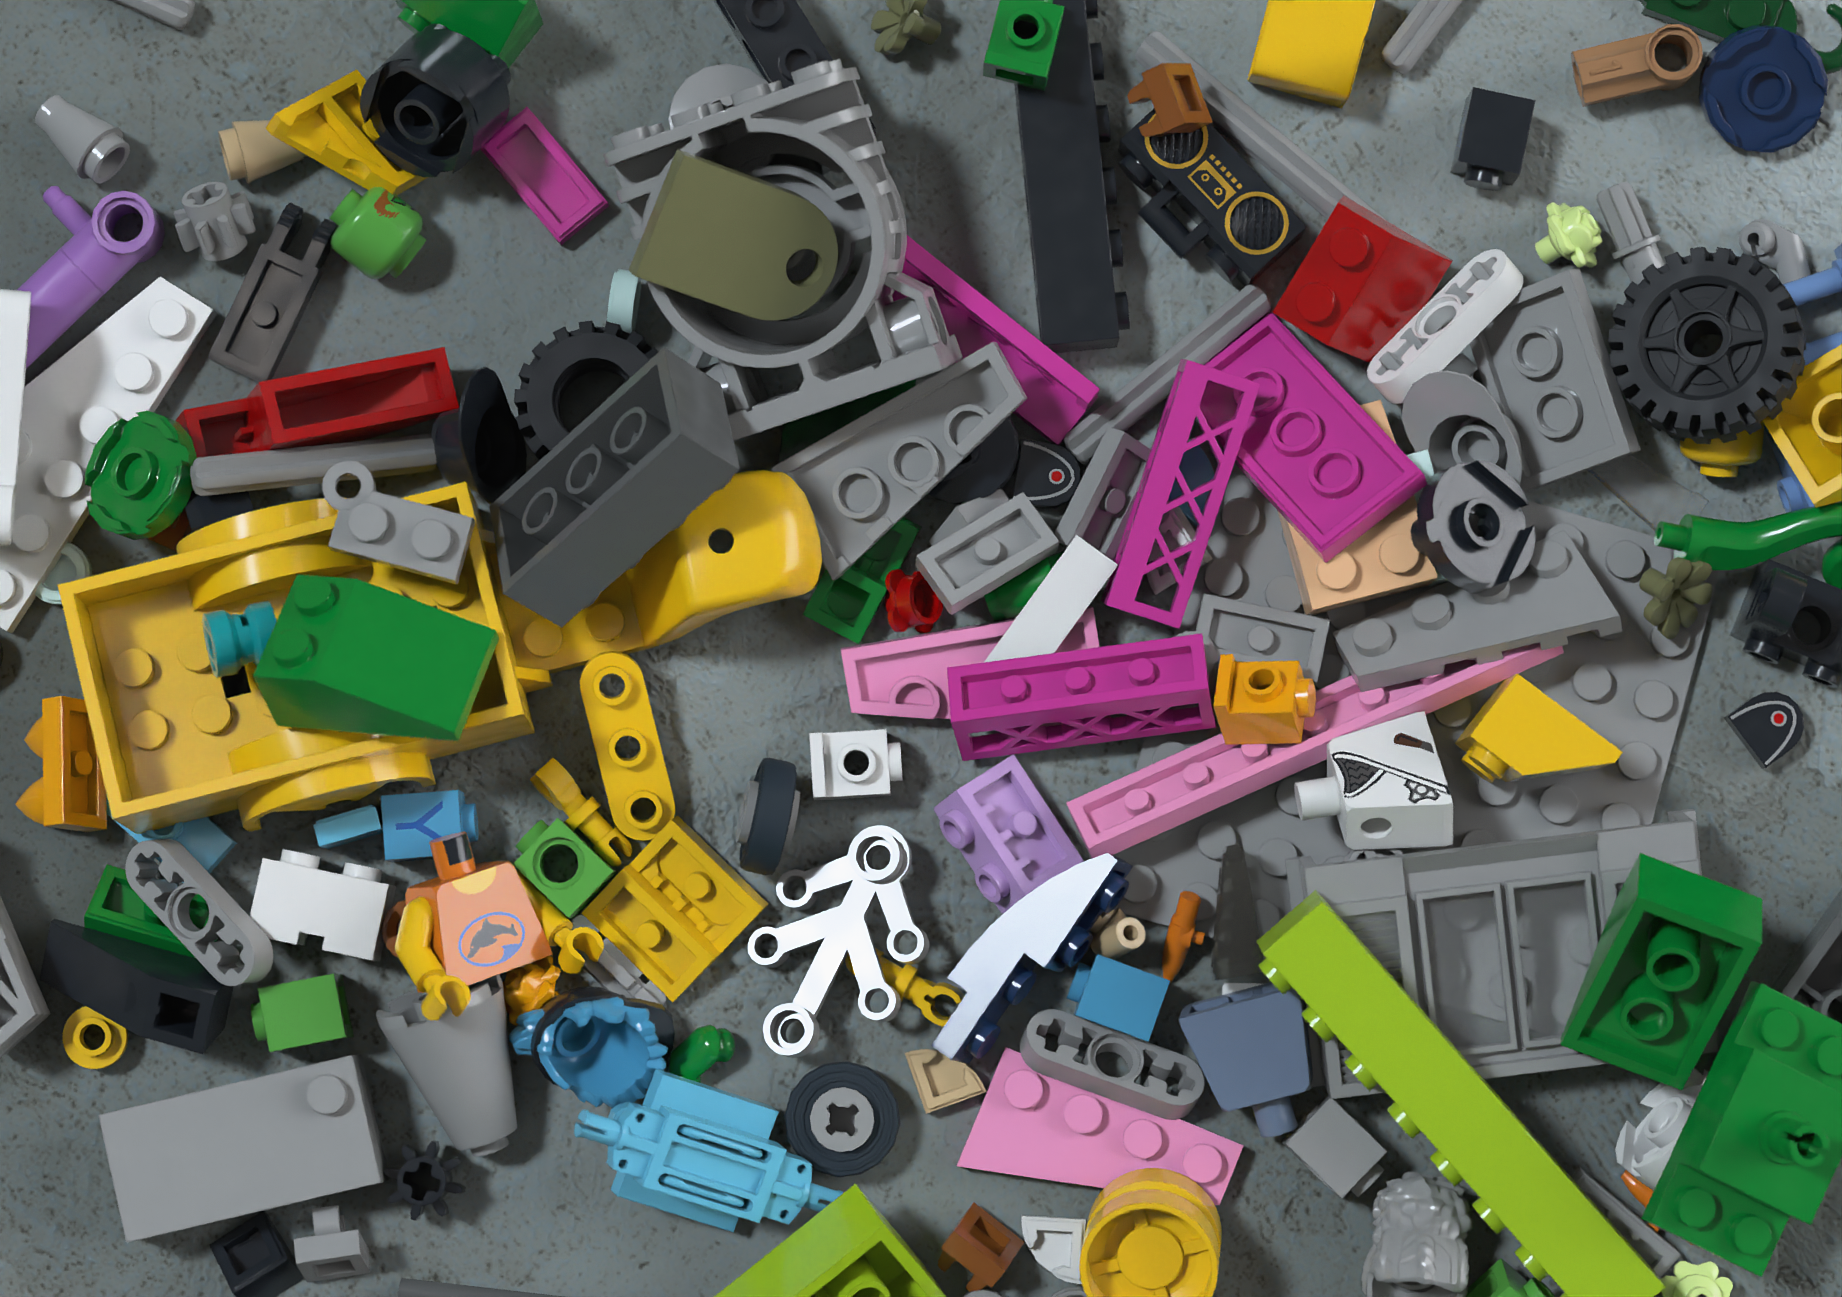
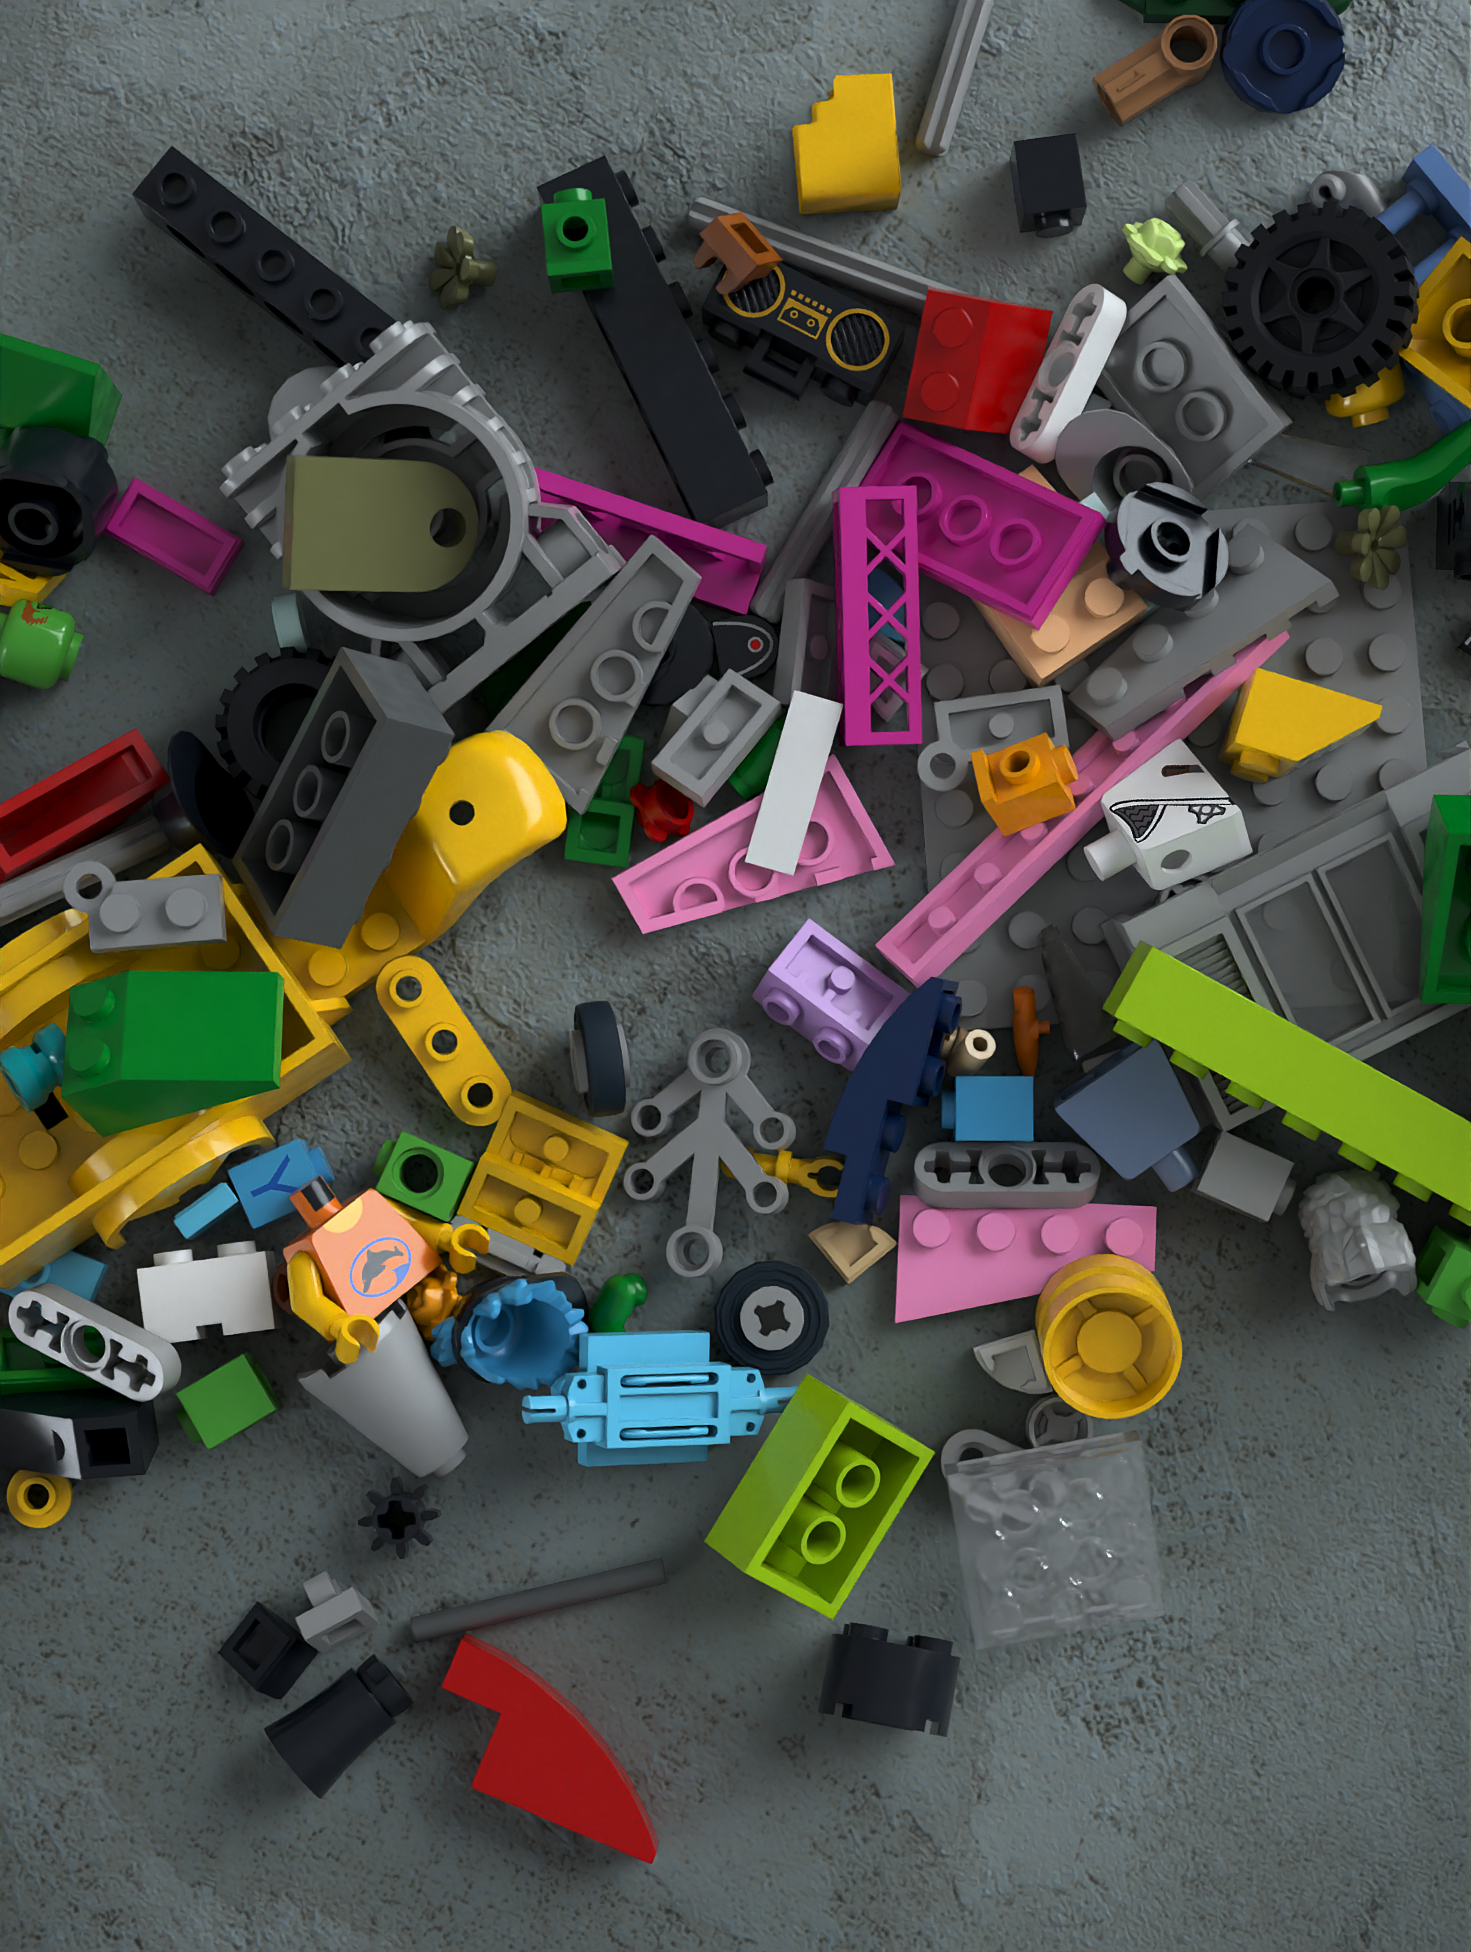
camera: 15 degrees left, 0 degrees up
(243, 1147) = (216, 1548): light grey brick -> none
(562, 791) = (398, 1106): yellow piece -> none
(828, 771) = (646, 1001): white brick -> none
(981, 1247) = (945, 1390): dark orange tile -> none
(1080, 691) = (850, 837): dark pink fence -> none

